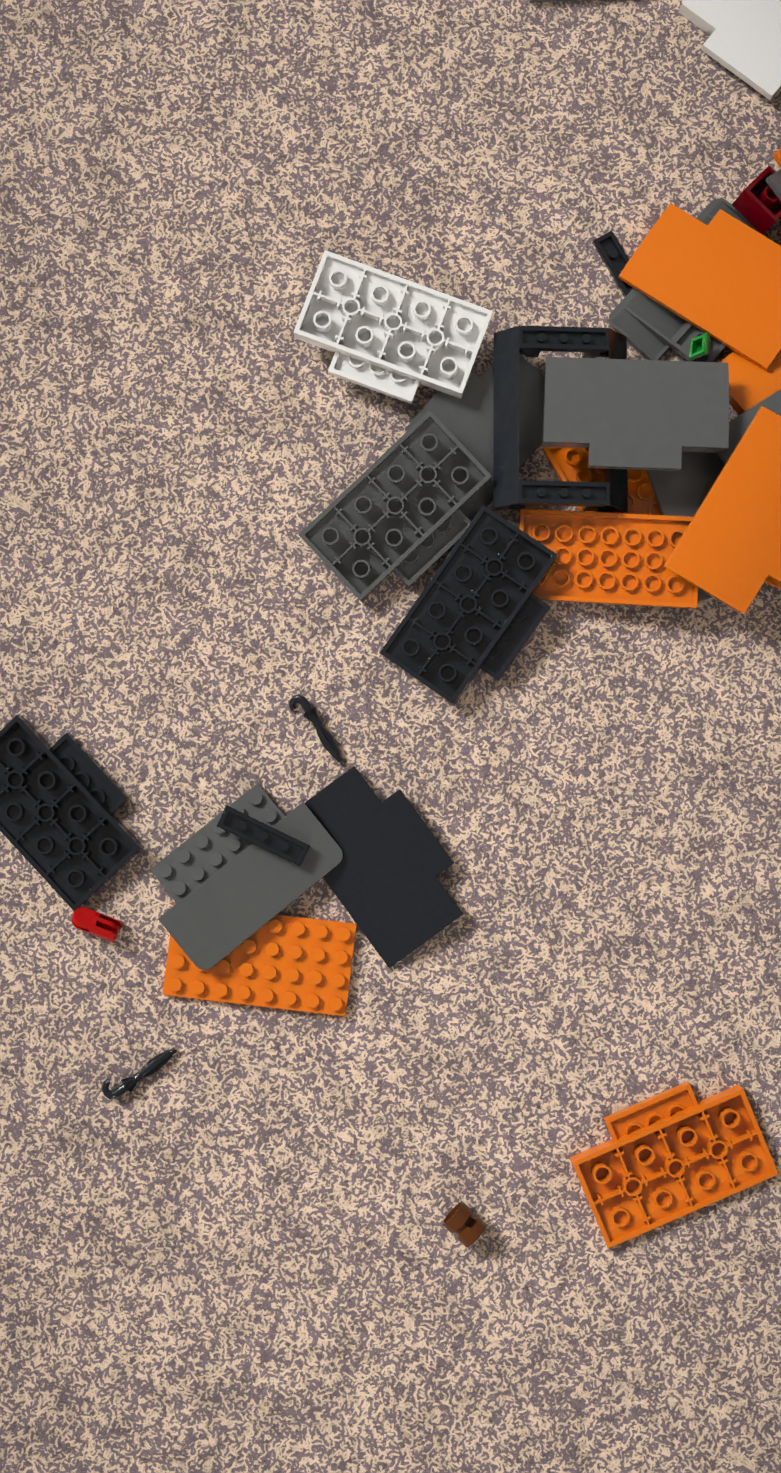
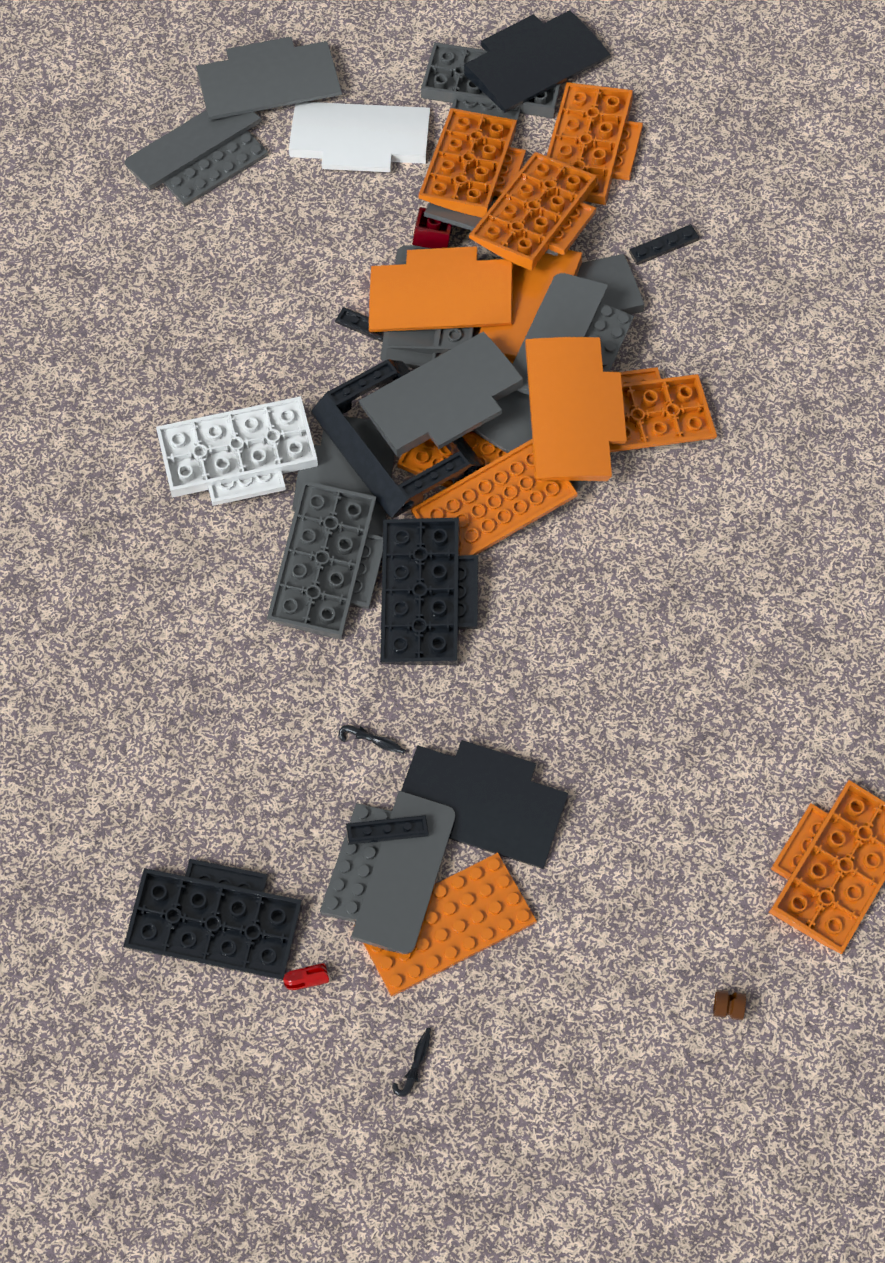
camera: 30 degrees left, 20 degrees down
(699, 346) = (456, 336): green slope -> none

